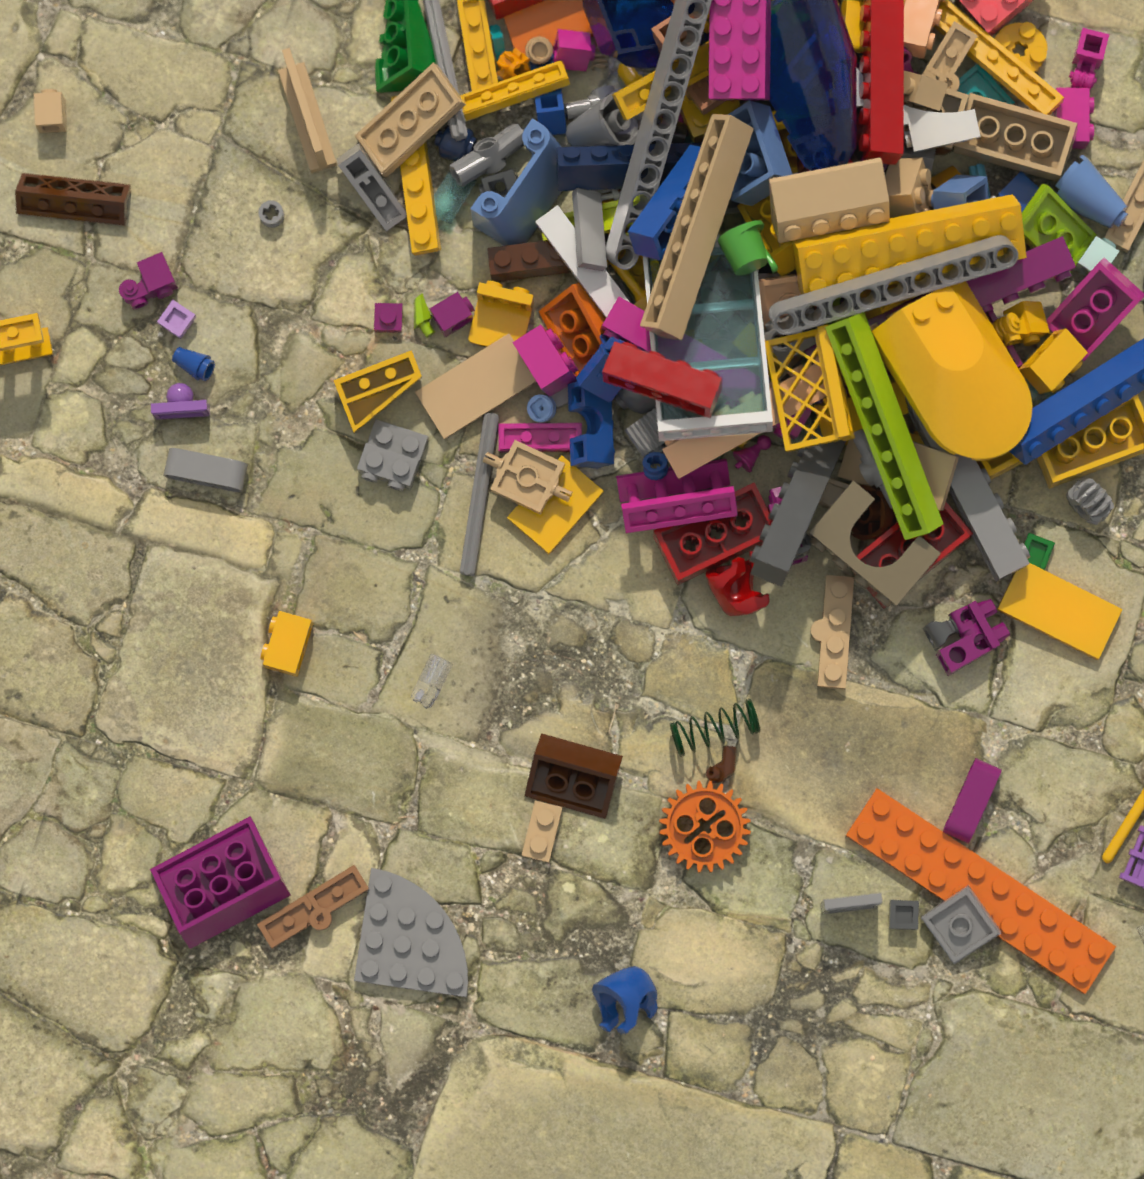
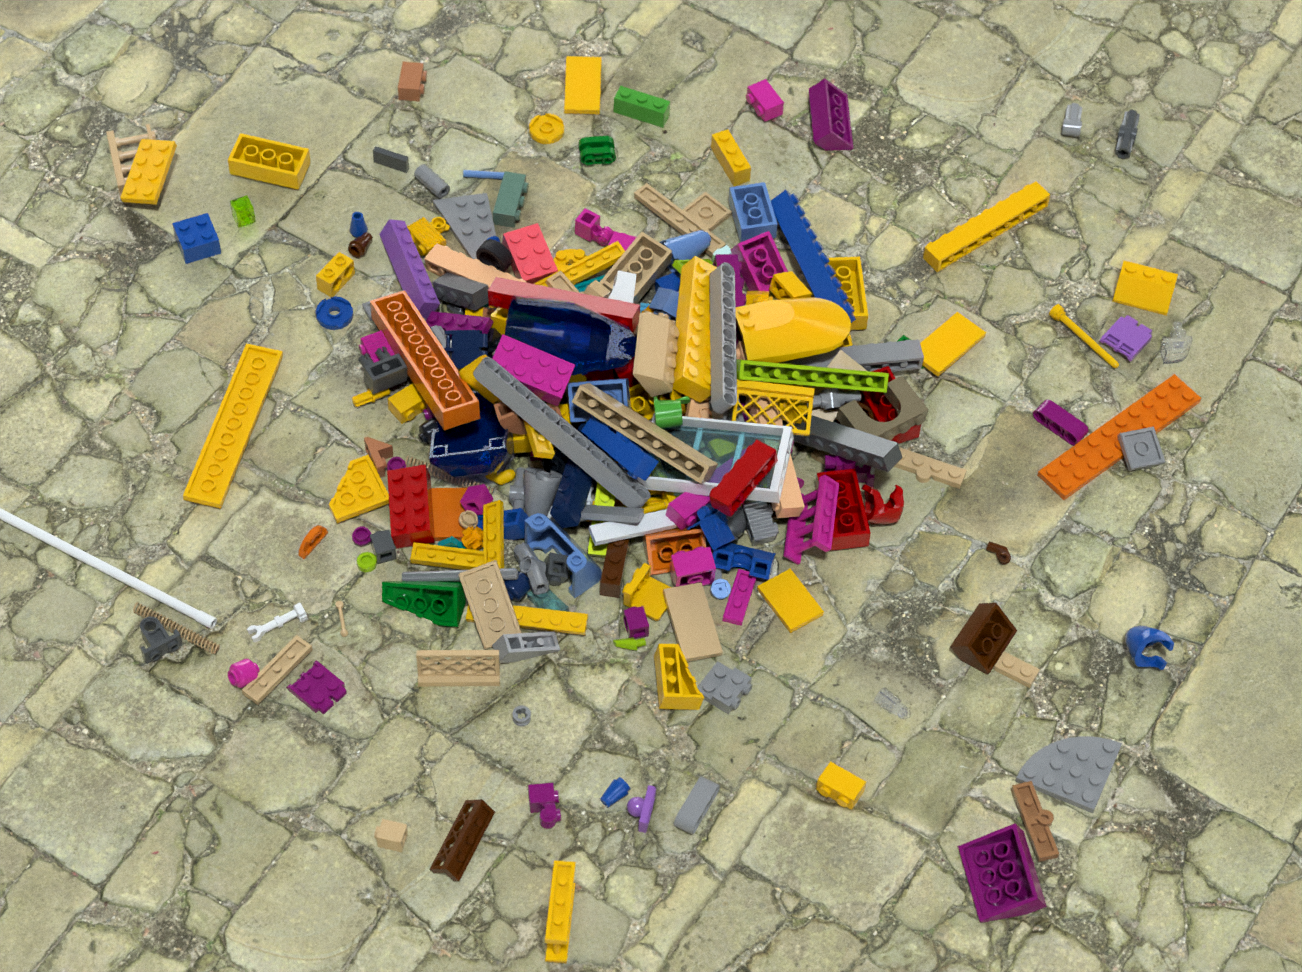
camera: 80 degrees left, 25 degrees down
(176, 319) = (578, 794): lavender plate -> none
(388, 317) = (623, 664): magenta plate -> none
(479, 495) = (769, 643): light grey axle -> none
(527, 477) = (768, 605): tan plate -> none
(655, 473) = (781, 528): blue bush -> none
(720, 847) = (1046, 586): orange gear -> none
(754, 726) = (973, 530): dark green piece -> none
(851, 903) = (1114, 500): light grey tile -> none
(903, 914) = (1126, 479): dark grey plate -> none
(975, 635) = (952, 395): magenta hips -> none
(1090, 500) = (883, 305): light grey gear -> none

